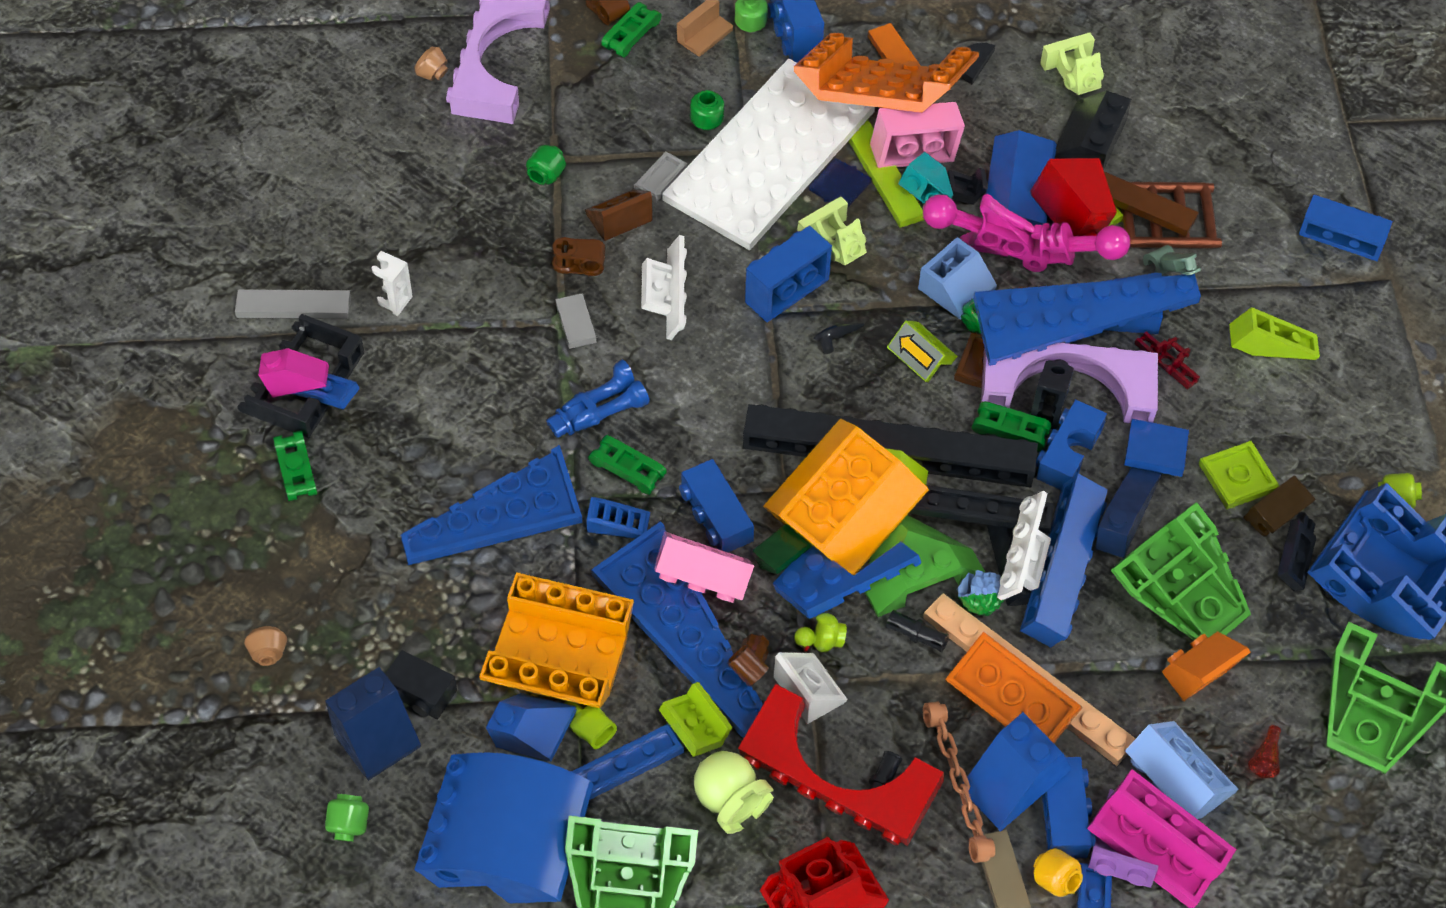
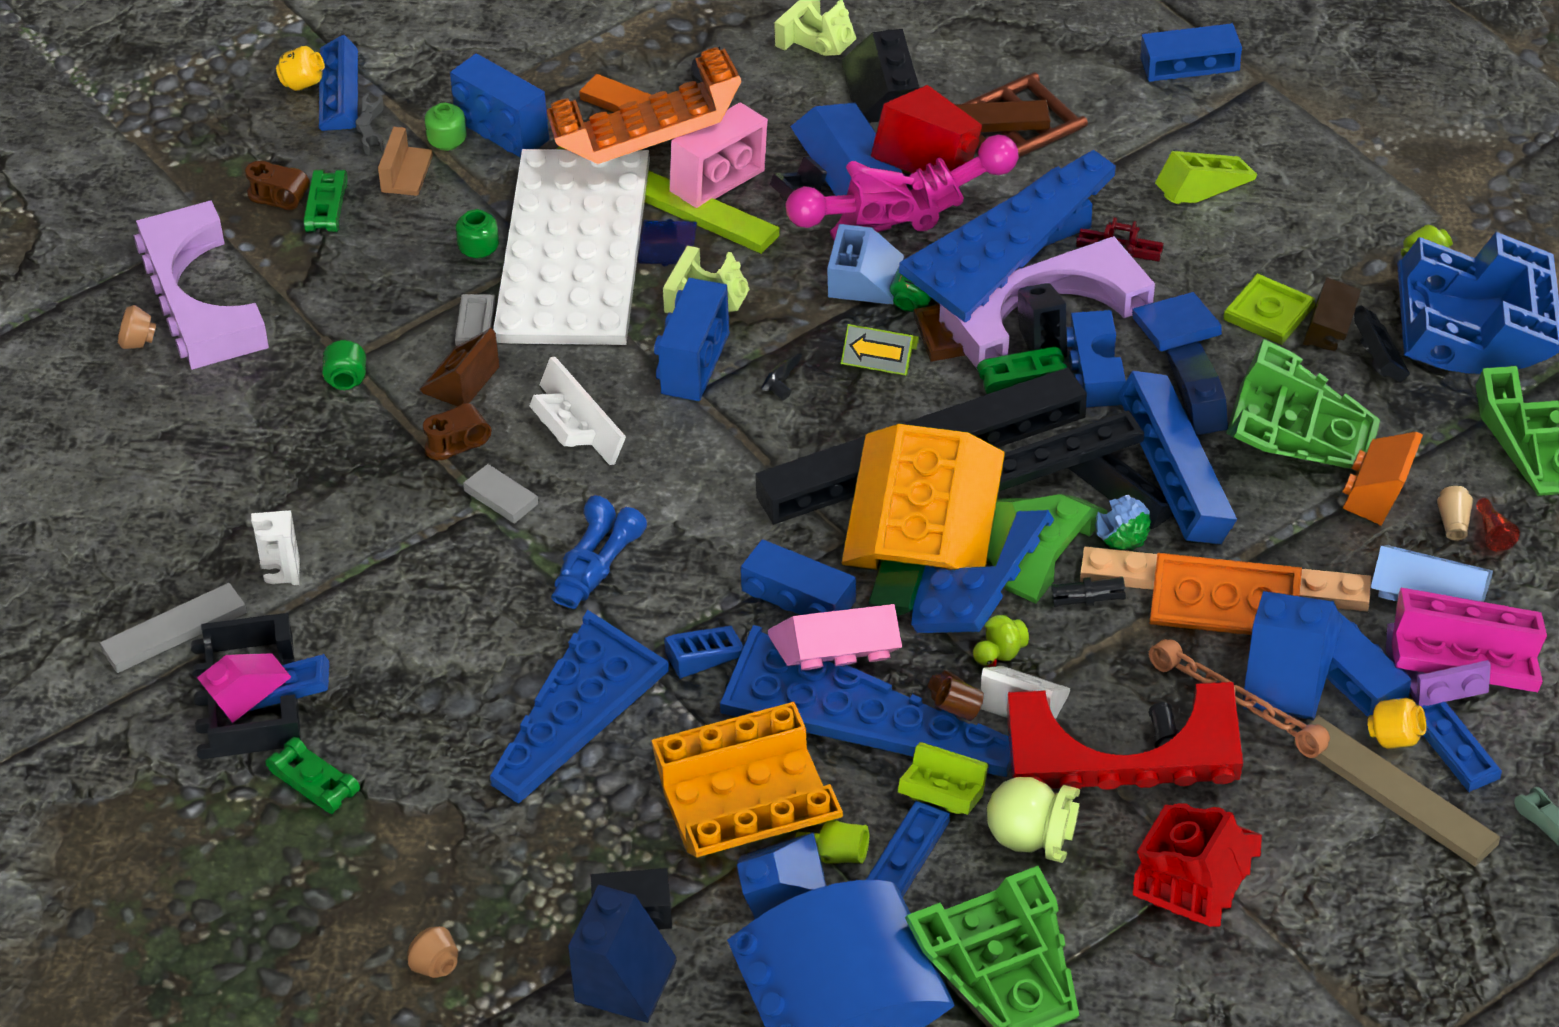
camera: 30 degrees left, 10 degrees down
(627, 464) = (671, 593): green plate -> none
(926, 178) = (760, 195): teal slope -> none
(1027, 550) = (1136, 456): white bracket -> none
(1168, 261) = (1056, 154): sand green piece -> none
(1245, 724) = (1455, 511): none -> tan cone

